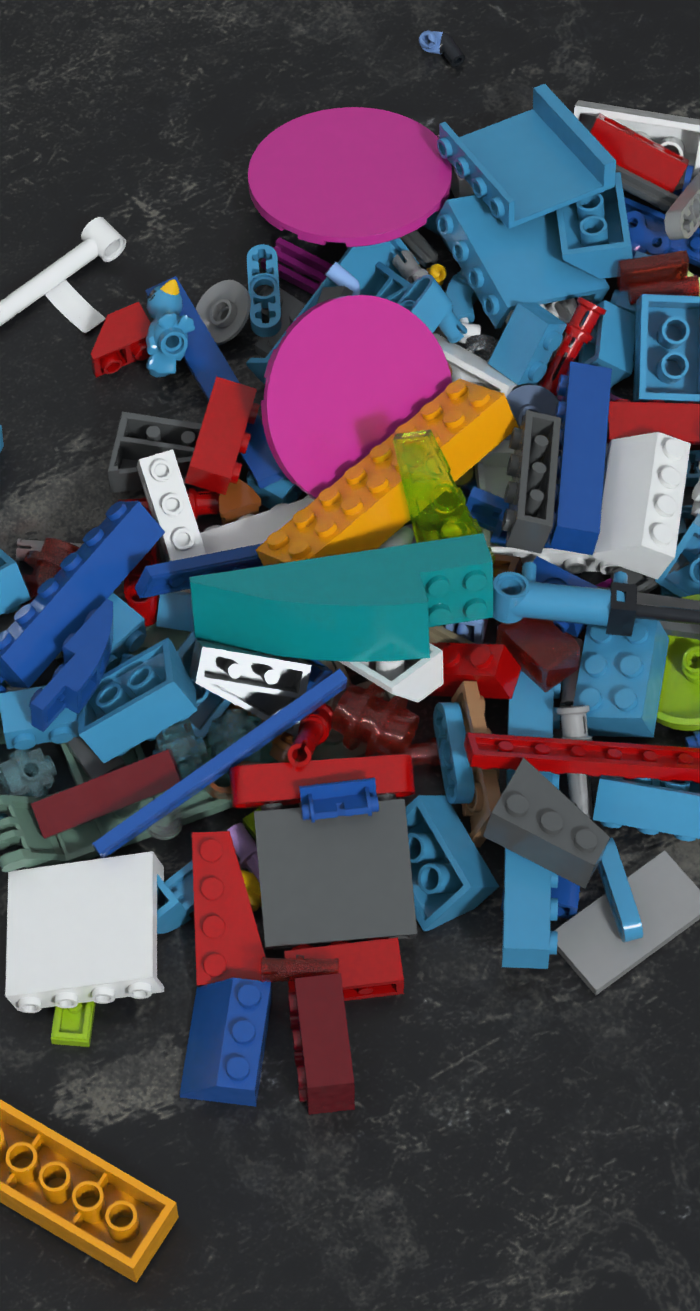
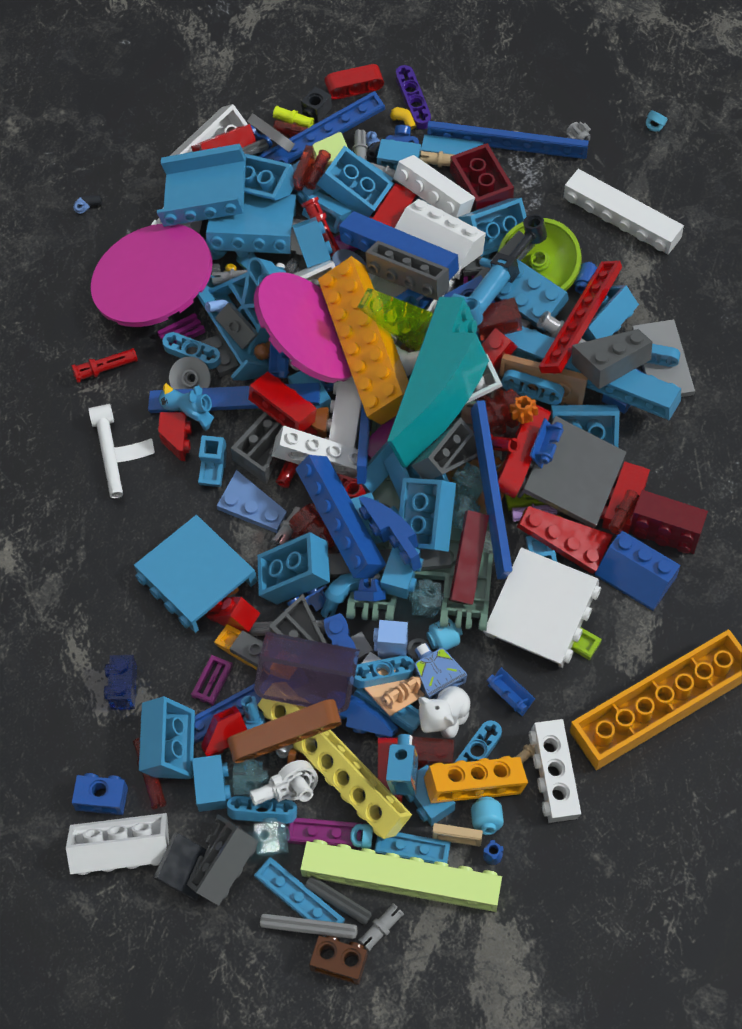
camera: 60 degrees left, 0 degrees up
(68, 486) = (251, 504): none -> medium blue wing
(101, 406) = (213, 460): none -> dark azure brick
(176, 190) = (93, 367): none -> red pin
(374, 743) = (524, 409): none -> orange gear

